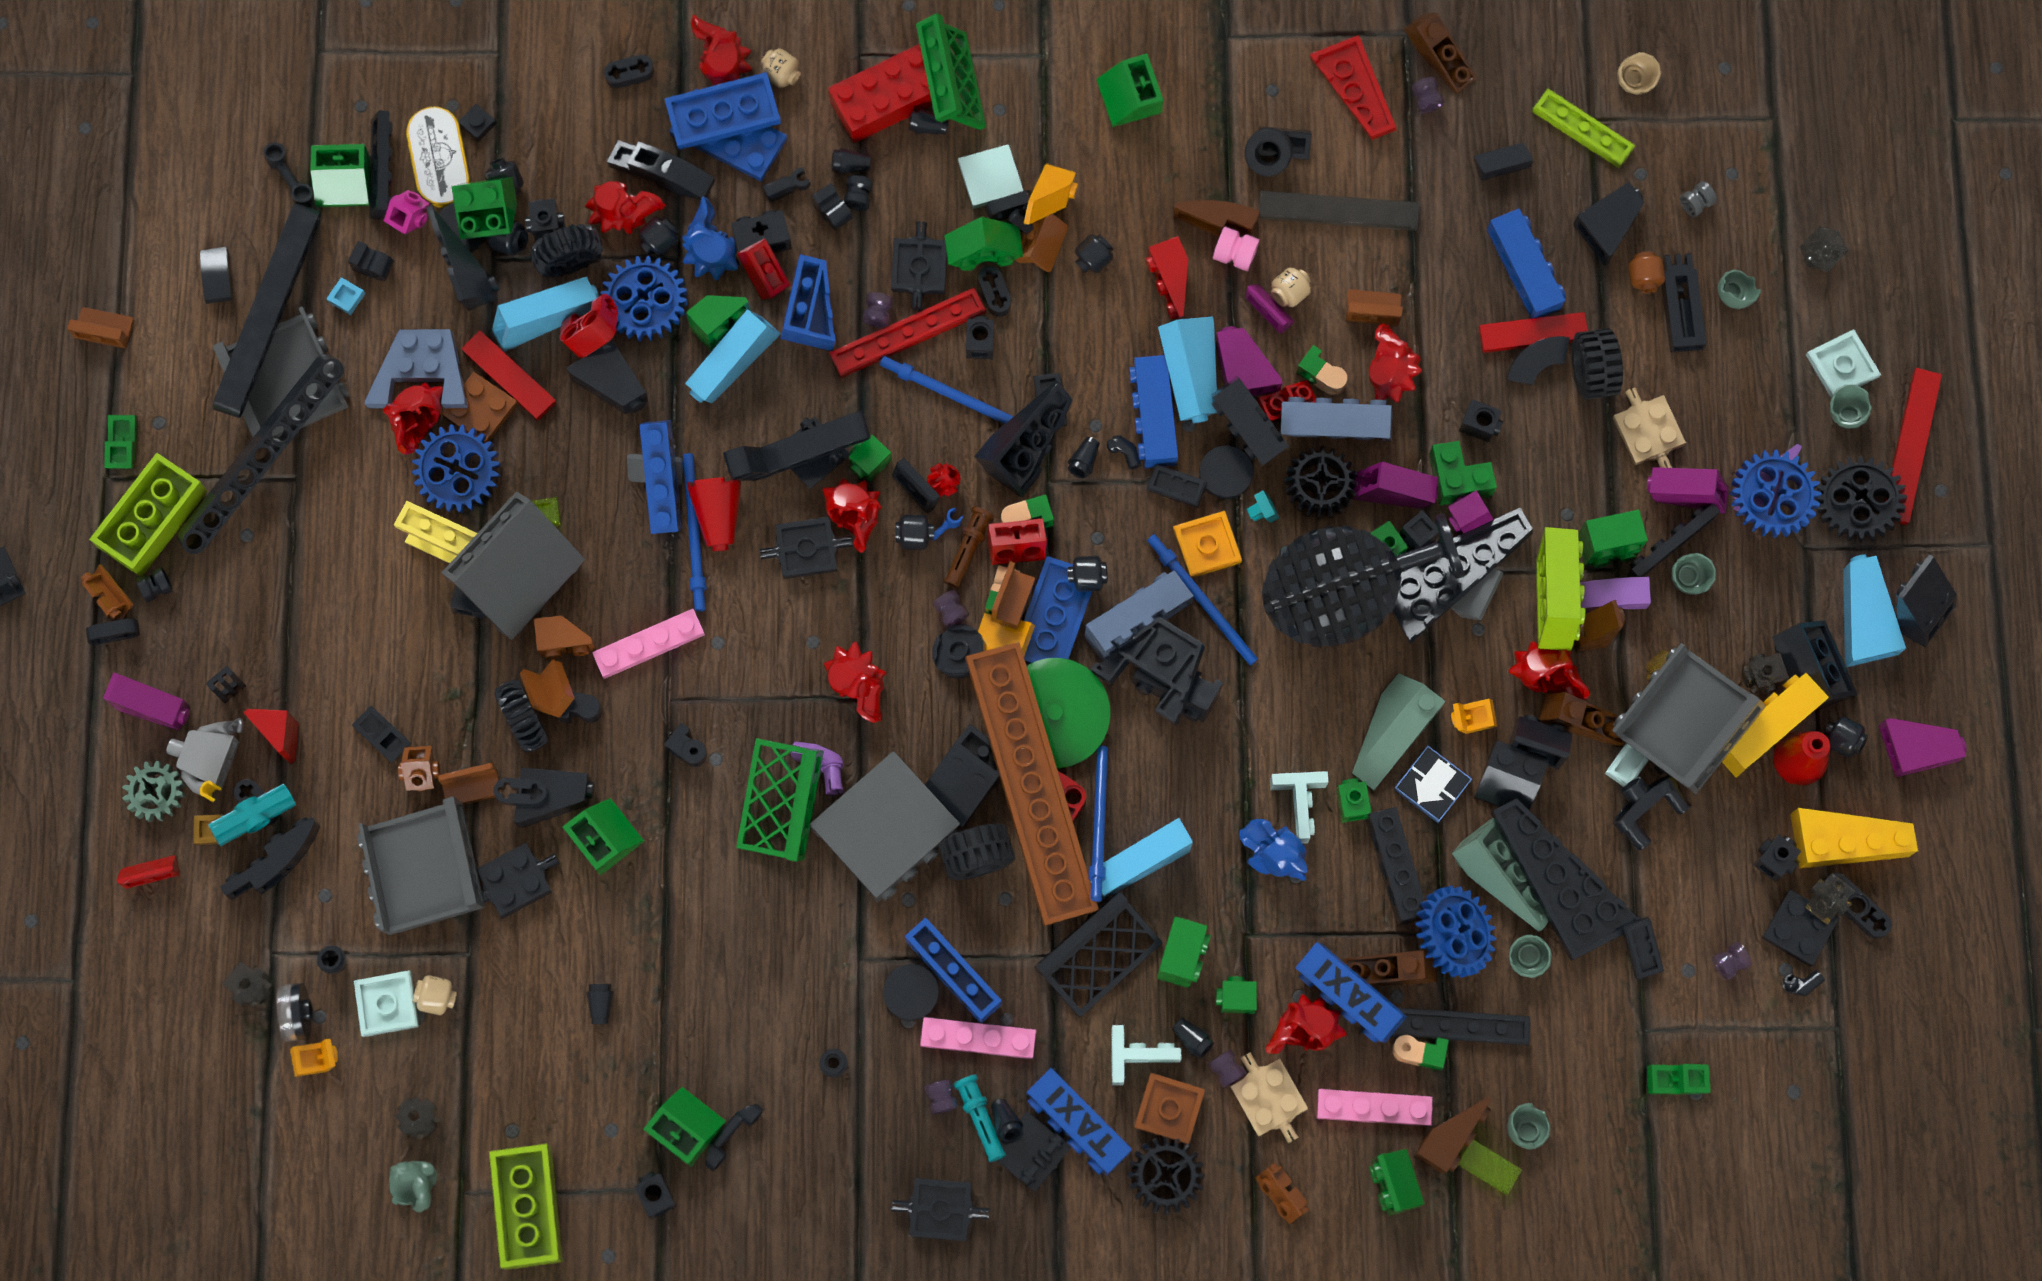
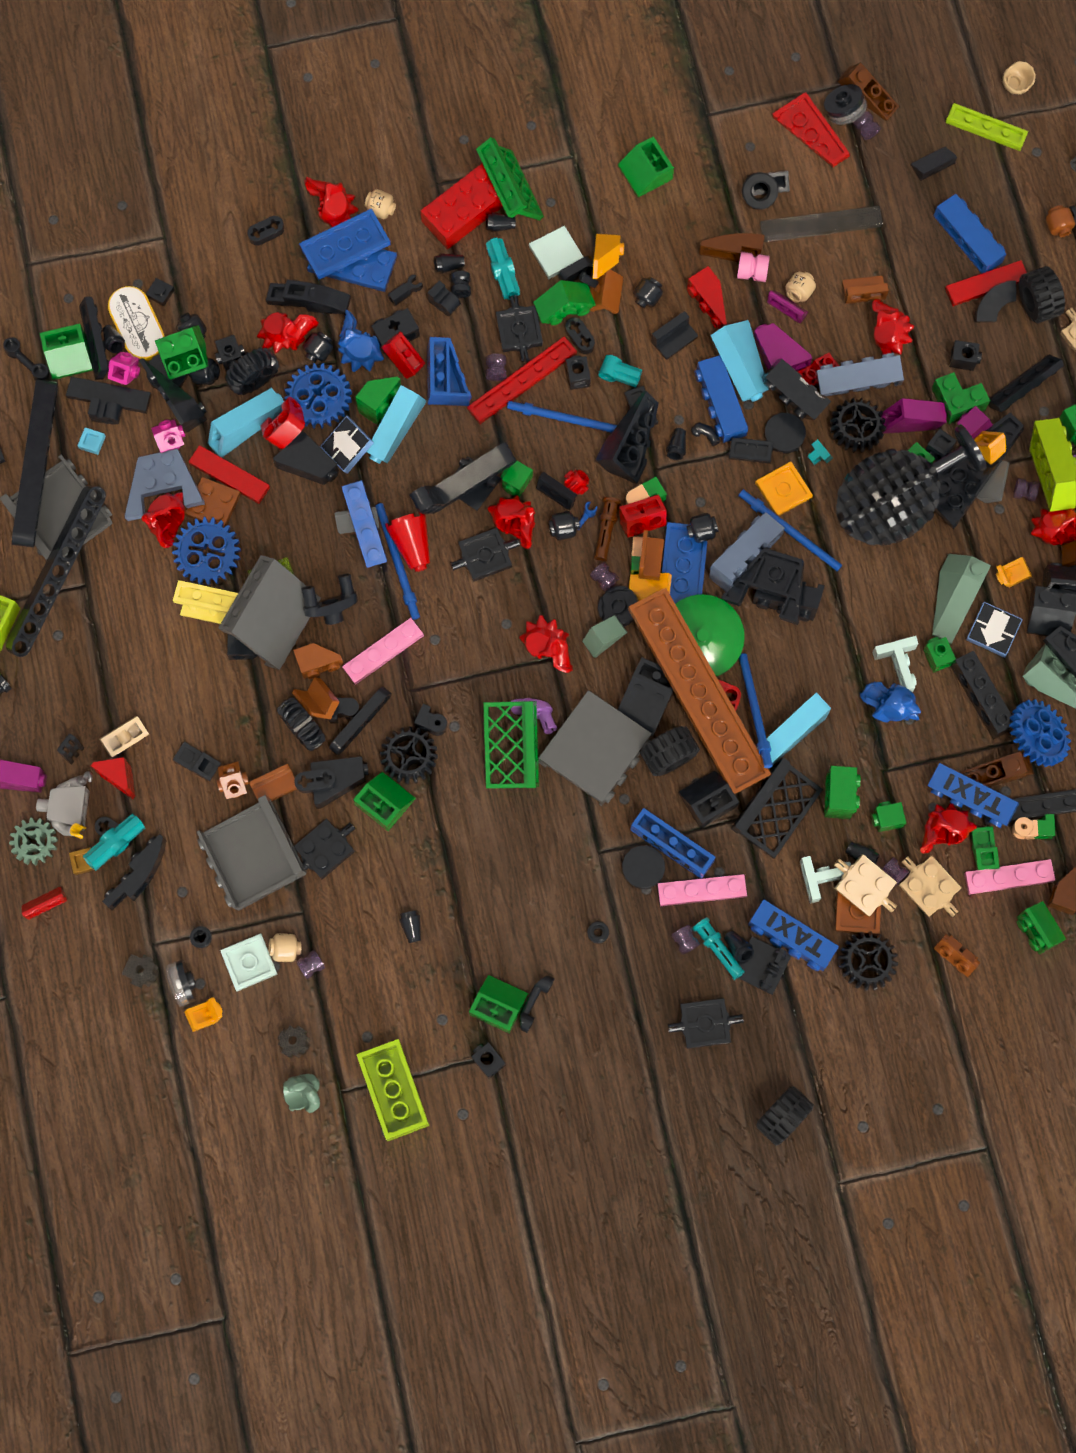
camera: 10 degrees left, 0 degrees up
(296, 683) = (124, 736): none -> tan brick
(400, 248) = (128, 398): none -> black tile
(403, 173) = (113, 340): none -> black cone
(442, 310) = (168, 435): none -> brick
(461, 1023) = (310, 964): none -> clear purple wheel
(595, 575) = (333, 607): none -> black connector
(597, 727) = (360, 720): none -> black beam
(653, 774) = (401, 751): none -> black gear
(664, 369) = (347, 444): none -> tile
(917, 183) = (502, 268): none -> teal piece
(931, 684) = (604, 635): none -> sand green slope
(1013, 923) = (709, 799): none -> black slope
(1028, 344) = (614, 369): none -> teal piece
(1114, 316) = (674, 336): none -> black panel
(1184, 1078) = (865, 885): none -> plate
(1321, 374) = (838, 345): leg -> none
(1351, 1064) = (984, 848): none -> green slope
(1405, 62) = (845, 104): none -> black piece
(1480, 546) = (991, 445): none -> light orange slope
(1511, 609) = (1023, 487): none -> wheel
(1550, 473) = (1024, 383): none -> black plate
(1609, 220) = (1023, 189): black slope -> none

